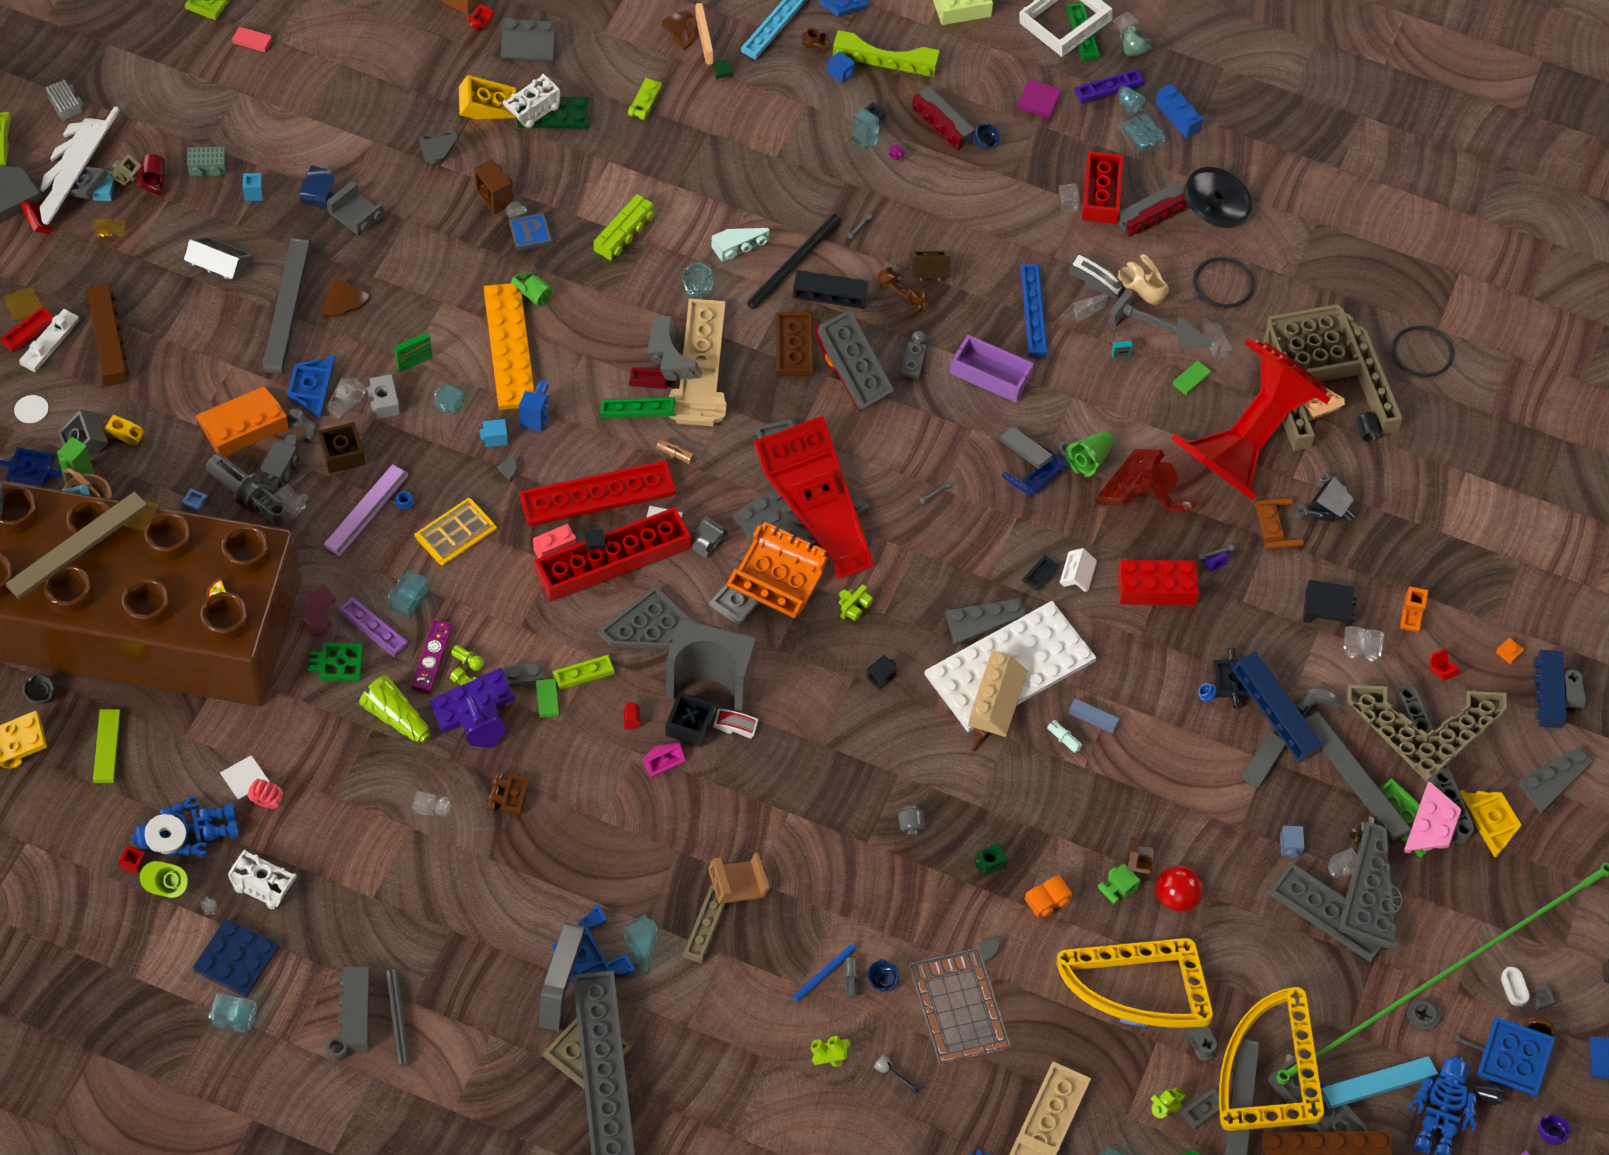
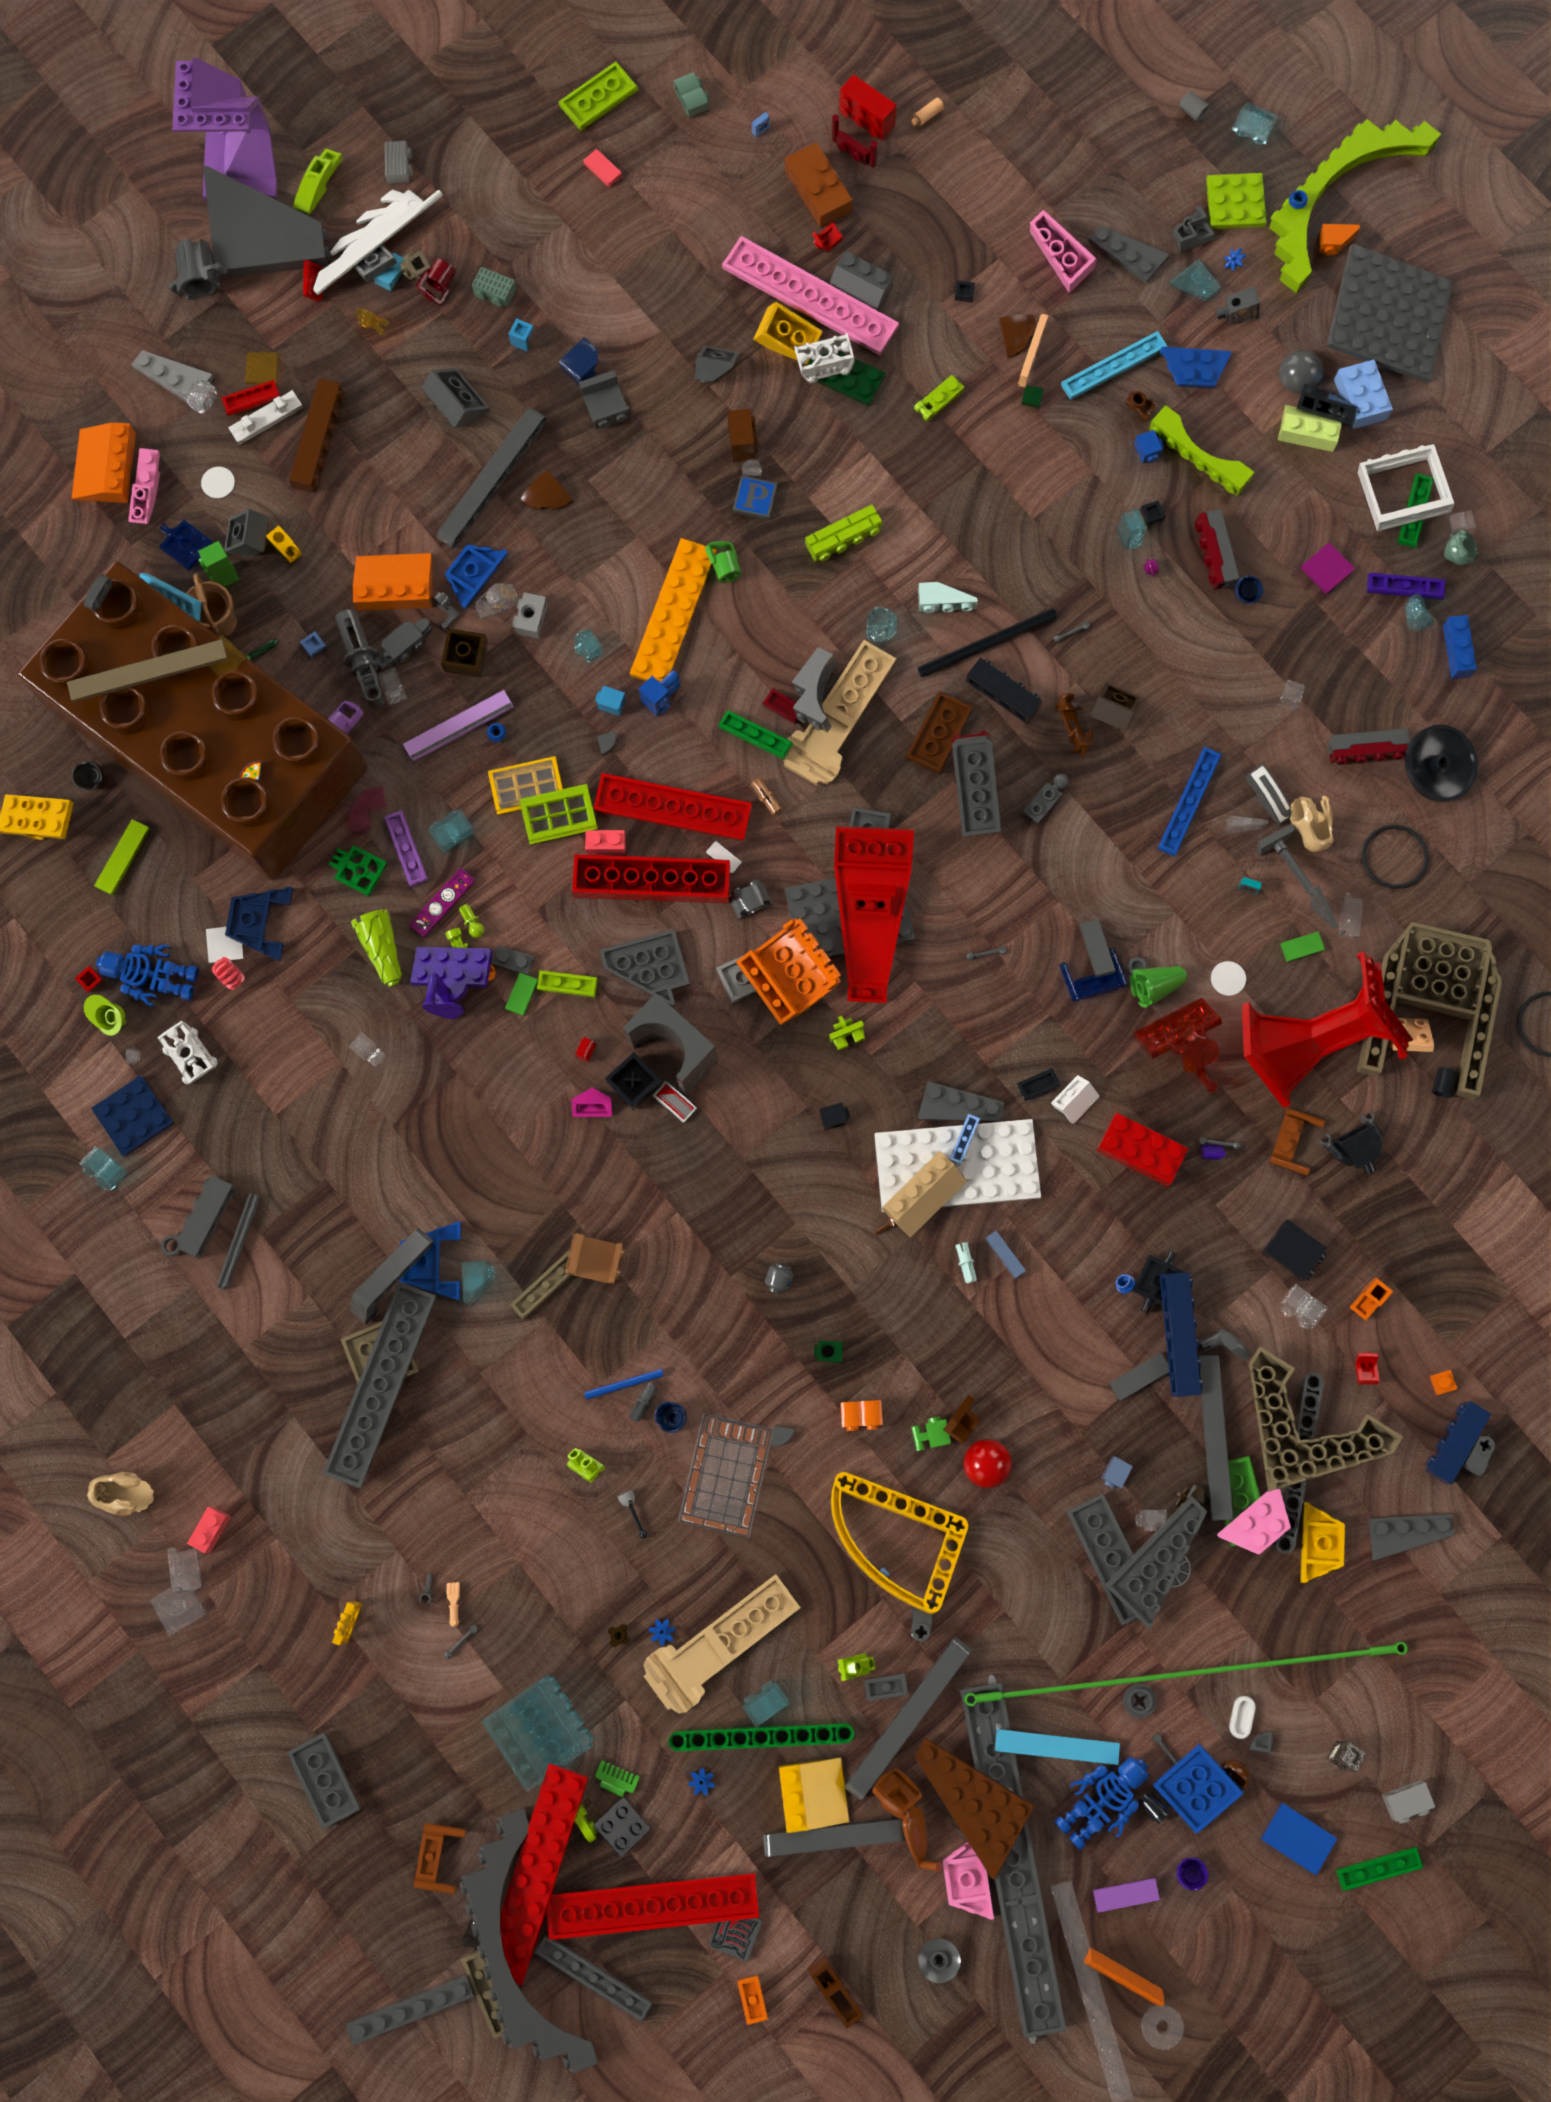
camera: 35 degrees right, 20 degrees up
(168, 823) = (110, 970): white tile -> none
(259, 744) = (249, 920): none -> dark blue wing
(413, 352) = (577, 582): green tile -> none
(488, 64) = (810, 295): none -> bright pink plate
(498, 540) = (558, 814): none -> lime piece
(513, 796) = (443, 1075): reddish brown plate -> none
(594, 539) = (637, 860): black tile -> none
(619, 15) = (964, 291): none -> black tile
(991, 368) = (1109, 849): medium lavender piece -> none
(1005, 634) = (964, 1139): none -> light blue piece
(1102, 187) = (1331, 699): red brick -> none
(1139, 133) = (1405, 655): clear light blue plate -> none
(1146, 427) = (1228, 978): none -> white sticker
(1260, 1112) = (992, 1700): yellow beam -> none

